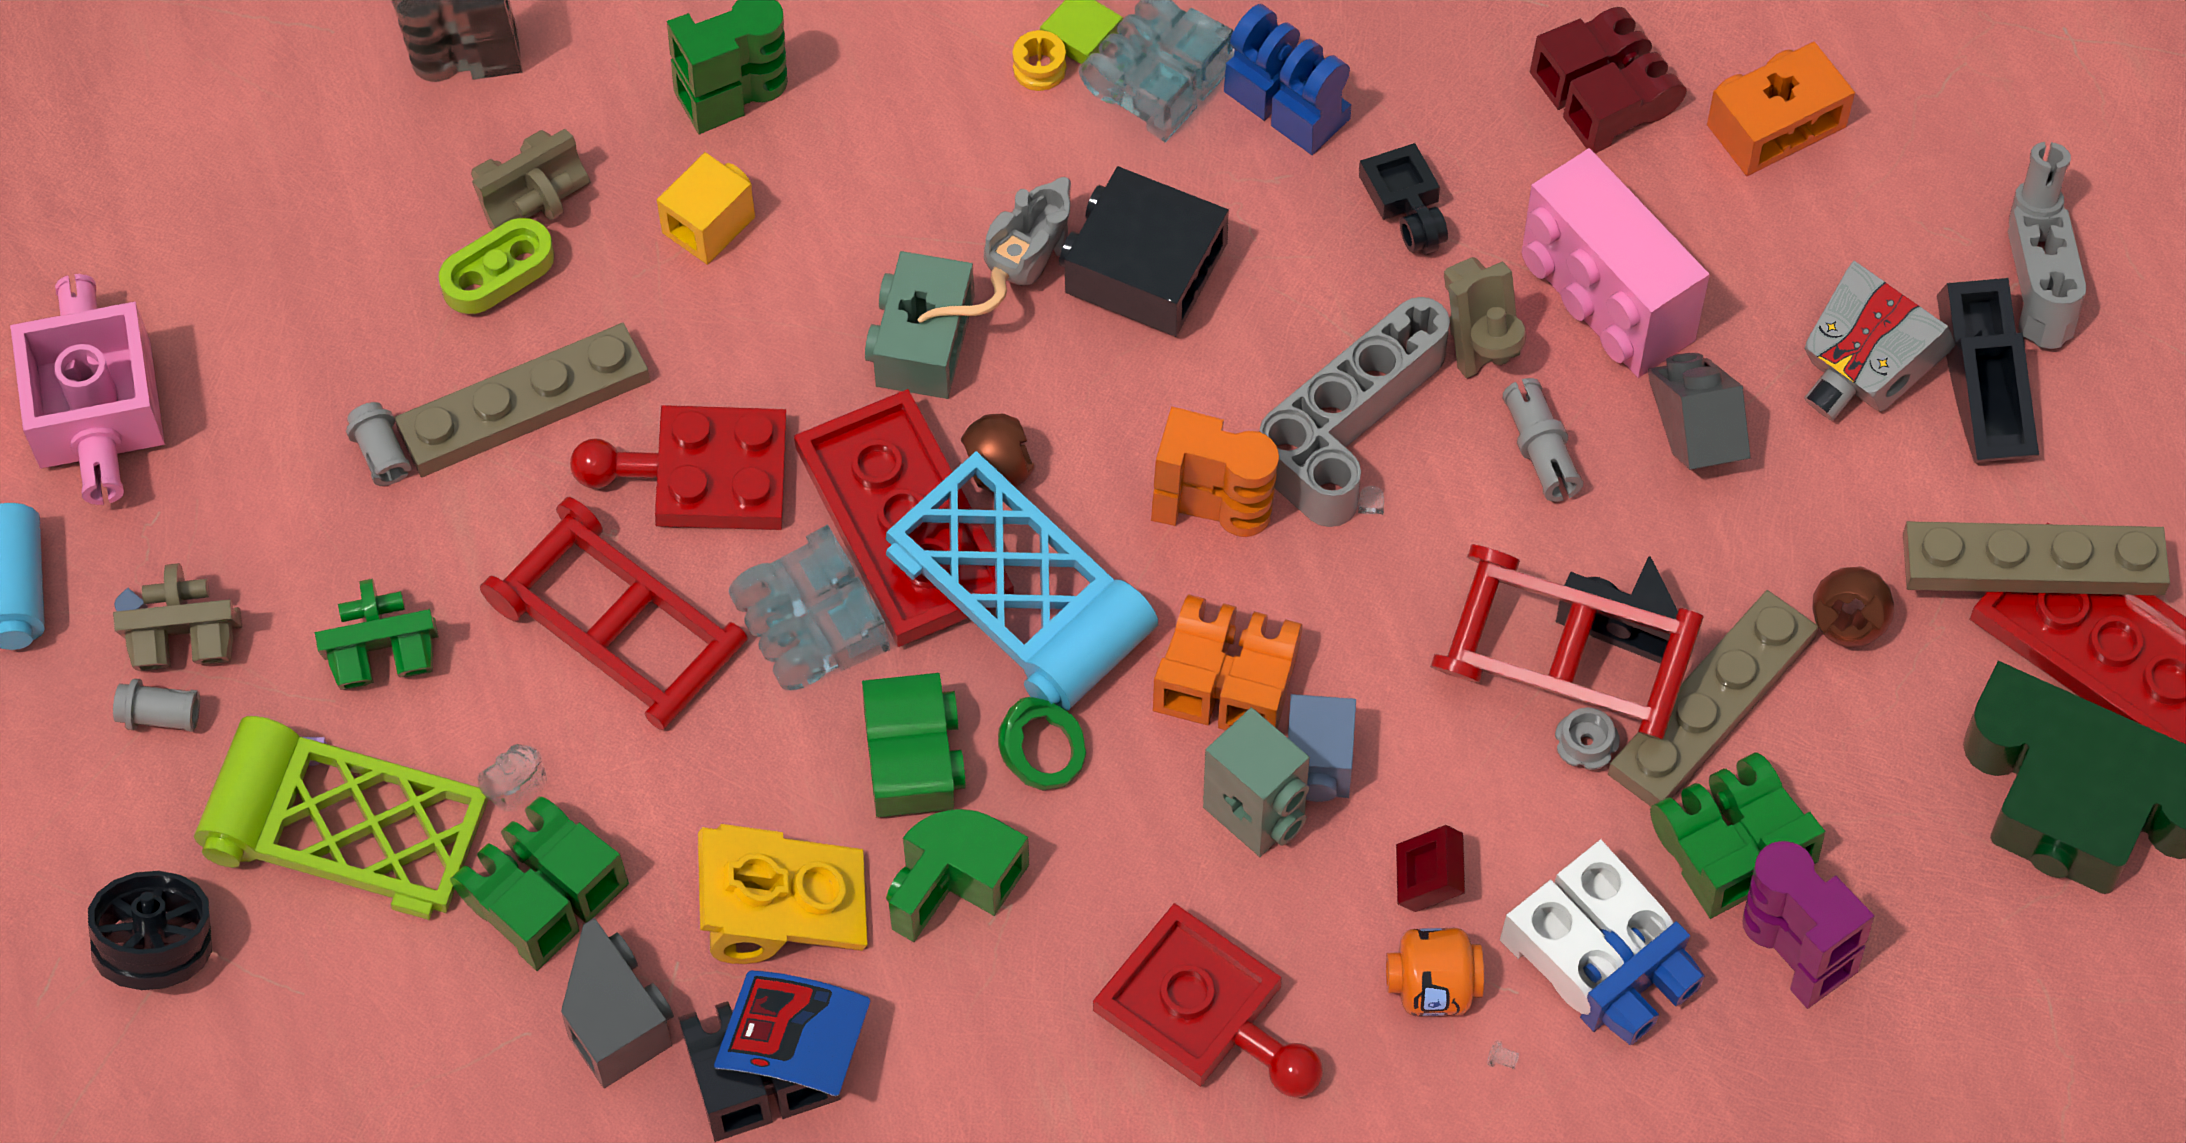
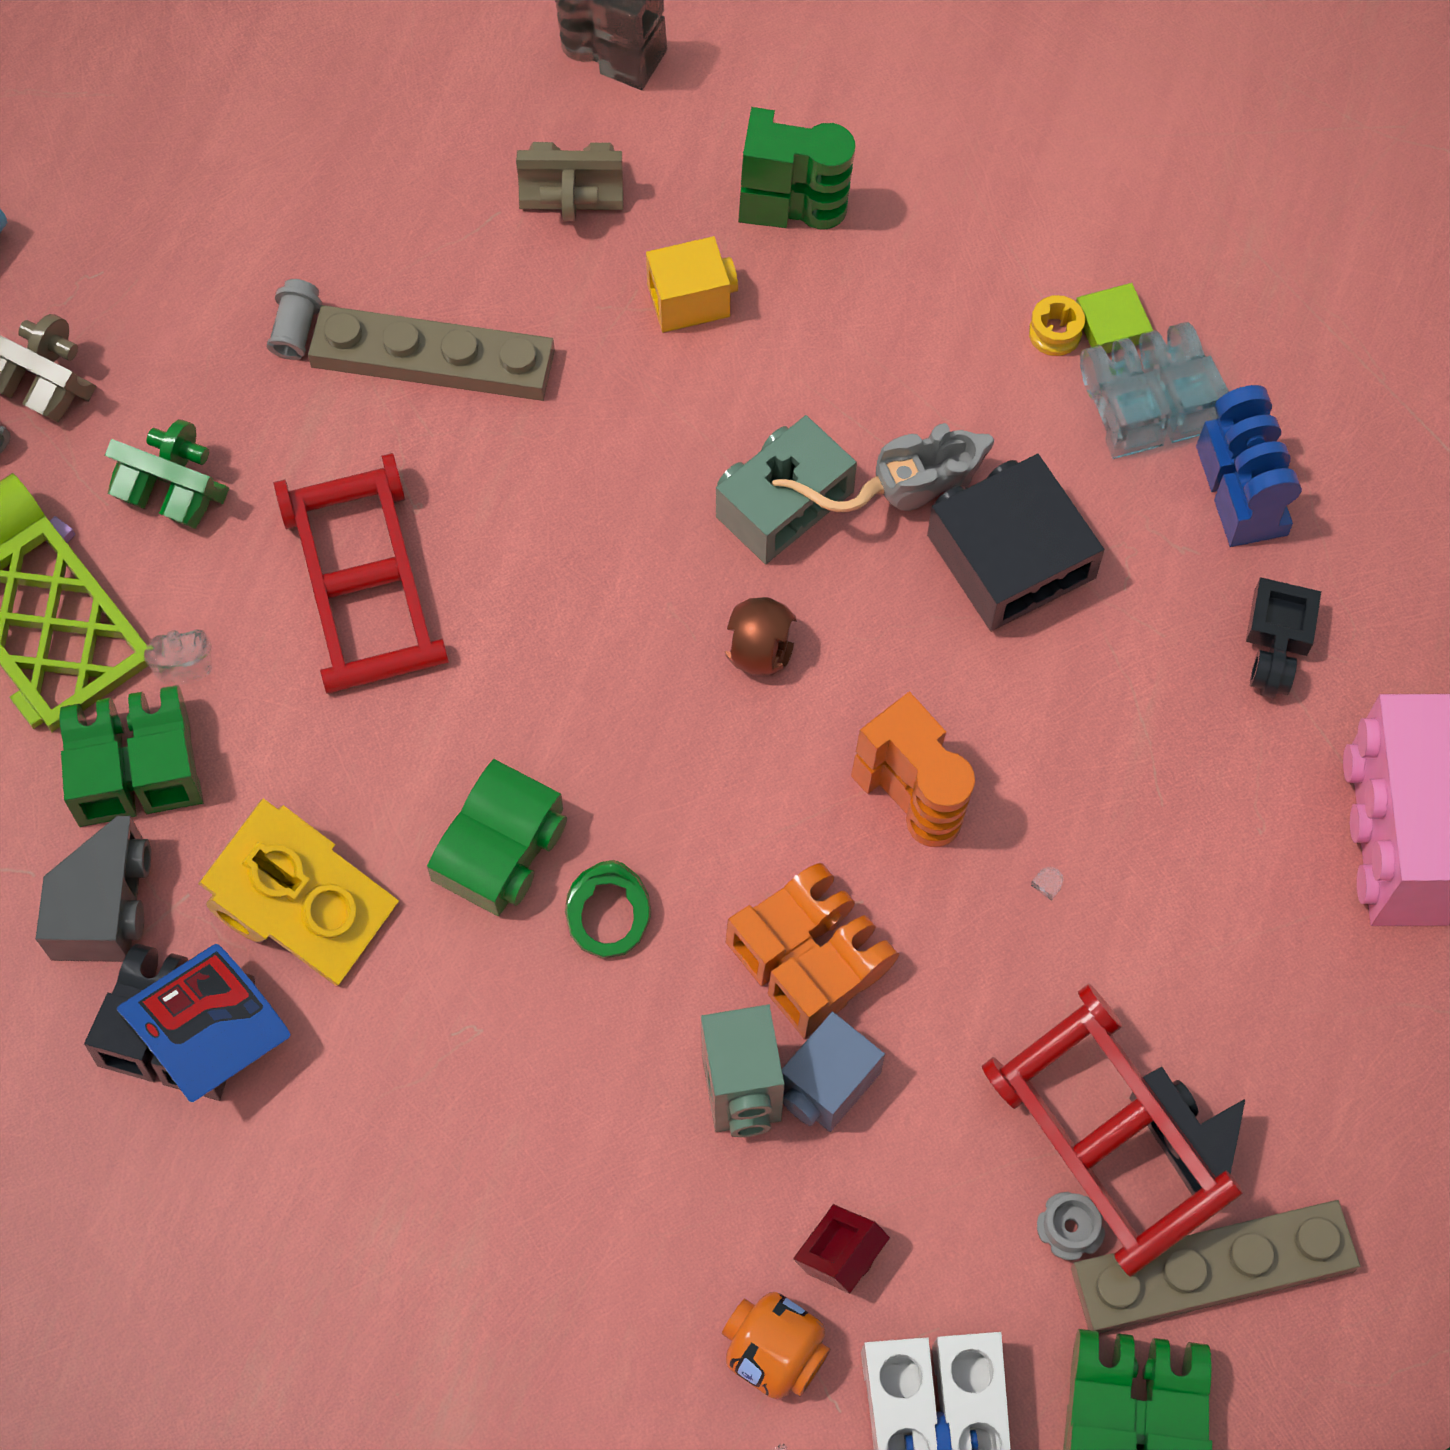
camera: 35 degrees right, 5 degrees up
(87, 387) = (112, 138): bright pink brick -> none
(128, 601) = (13, 328): sand blue piece -> none
(493, 265) = (493, 231): lime plate -> none
(710, 467) = (530, 502): red plate -> none
(840, 617) = (535, 664): clear light blue legs -> none
(869, 476) = (644, 642): red plate -> none
(956, 854) = (456, 954): green brick -> none
(1073, 646) = (701, 842): medium azure piece -> none
(1196, 997) = (553, 1224): red plate -> none
(1407, 348) = (1106, 791): light grey beam -> none
(1483, 315) = (1260, 781): dark tan hips -> none
(1542, 440) = (1236, 927): light grey pin -> none
(1700, 411) = (1398, 995): dark grey slope -> none
(1862, 625) = (1398, 1292): copper piece -> none

